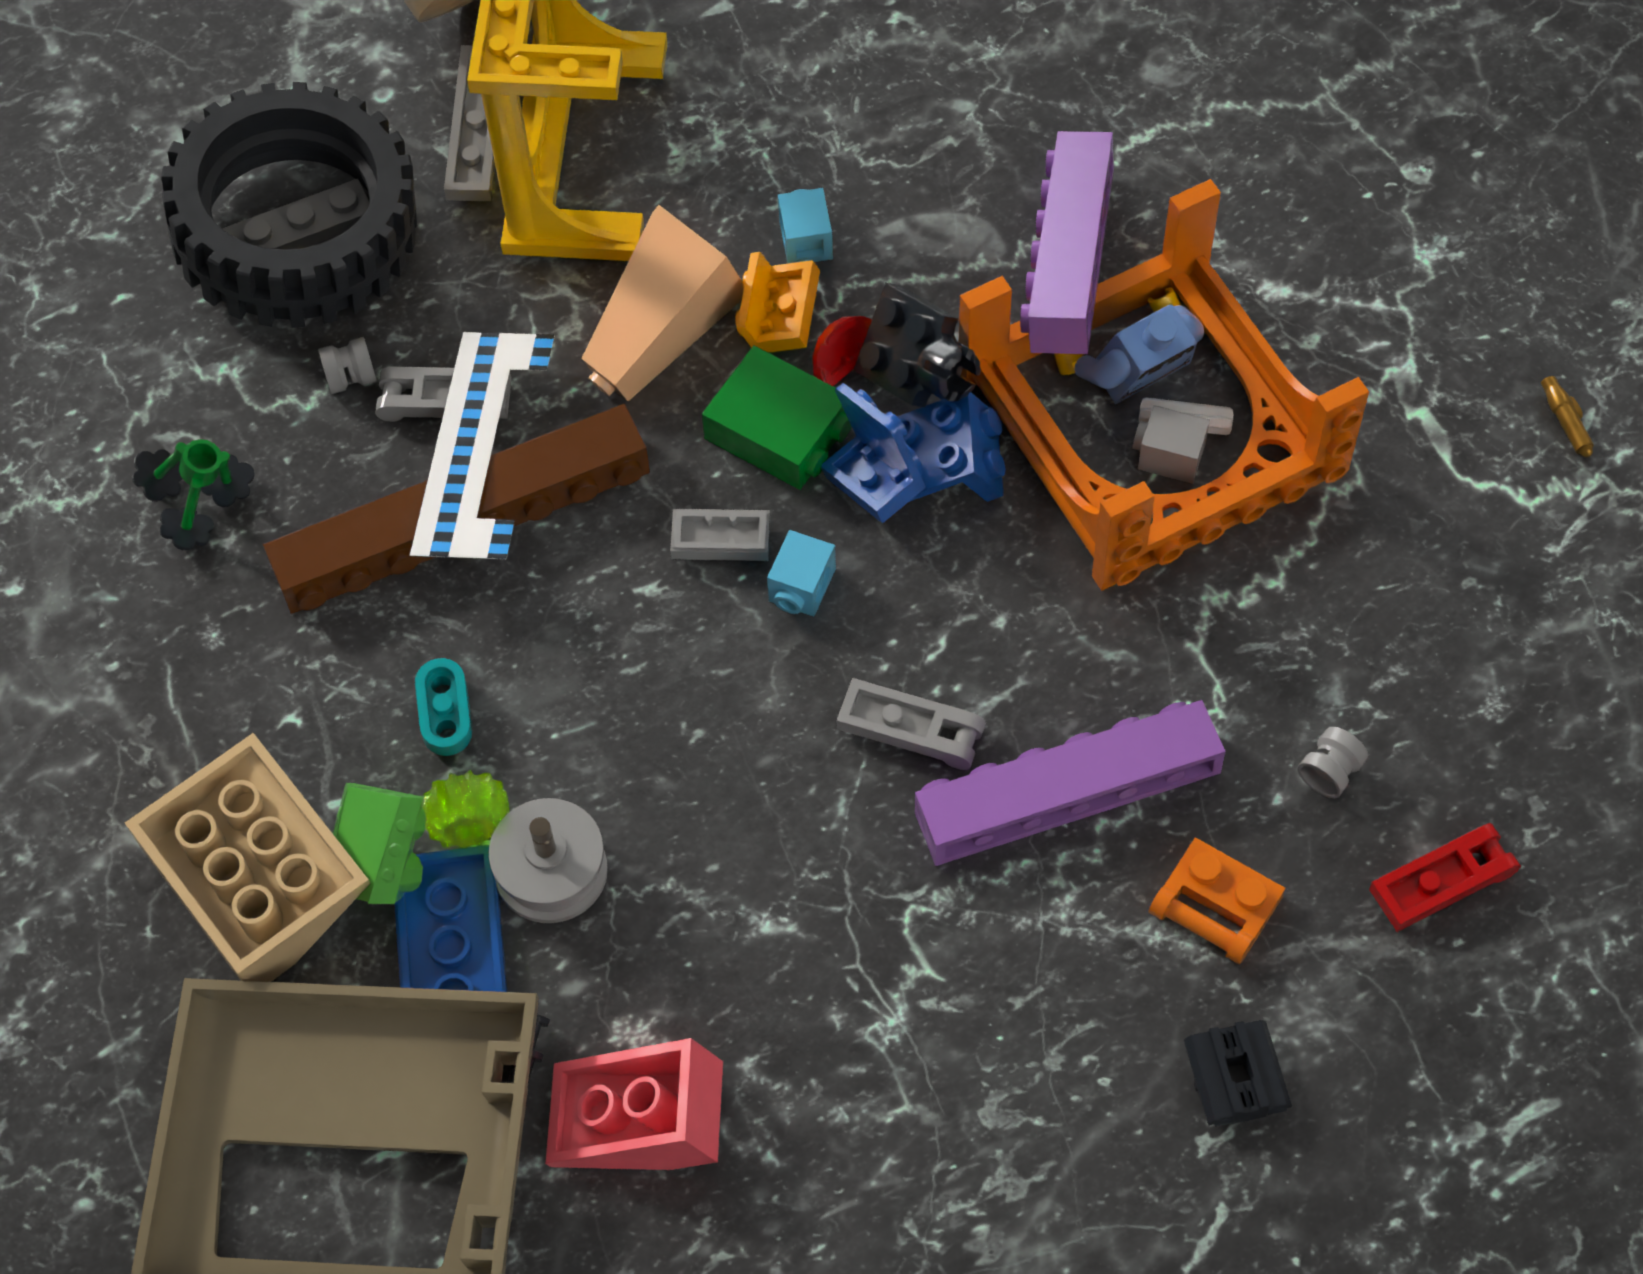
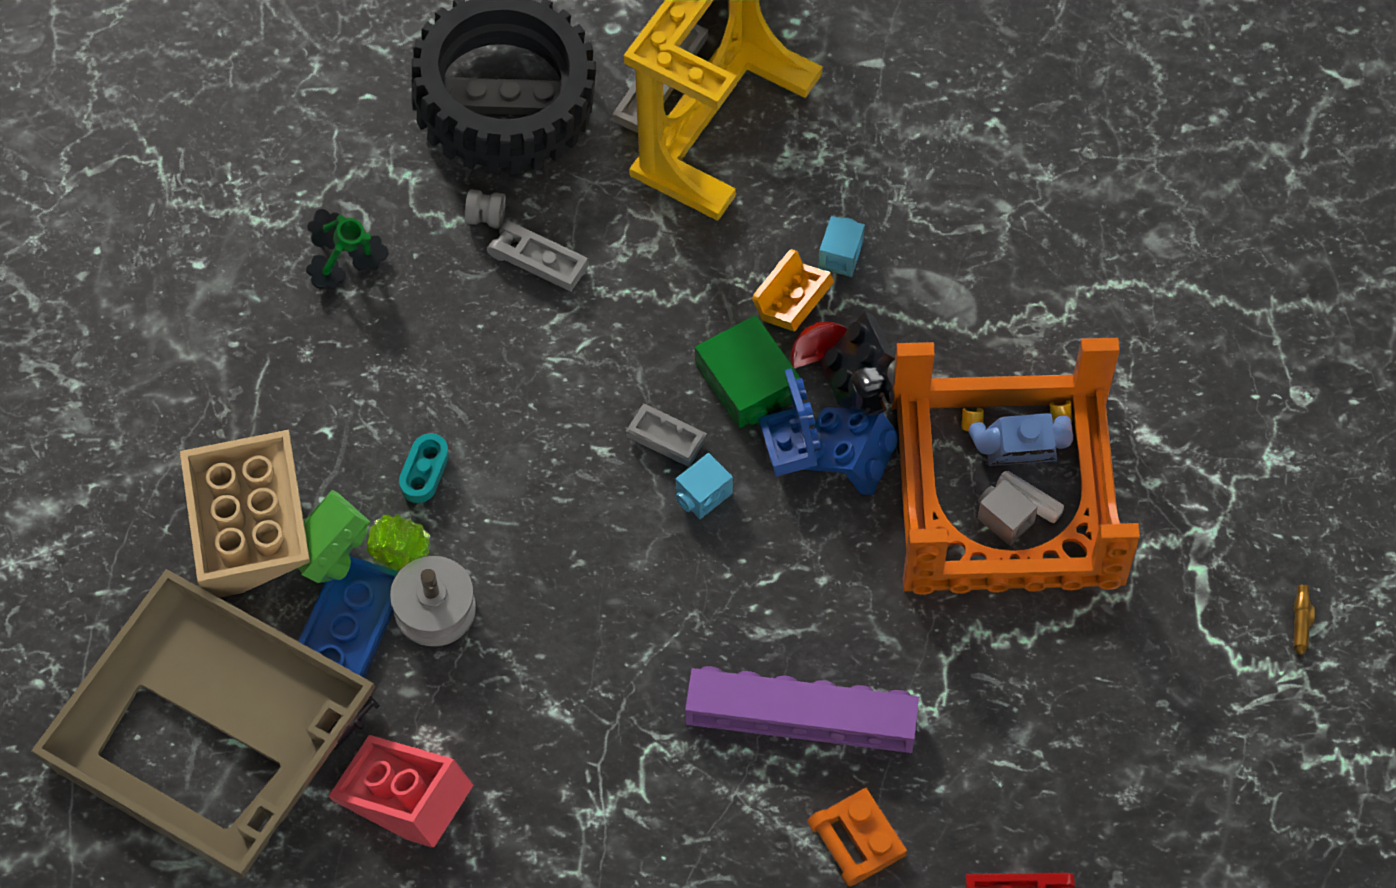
camera: 25 degrees right, 0 degrees up
(465, 443) = (488, 344): white sticker -> none
(519, 486) = (504, 339): reddish brown brick -> none
(660, 306) = (709, 259): light nougat slope -> none
(910, 723) = (719, 620): light grey plate -> none
(1070, 243) = (1011, 338): brick -> none
(1336, 758) = (989, 781): light grey wheel -> none

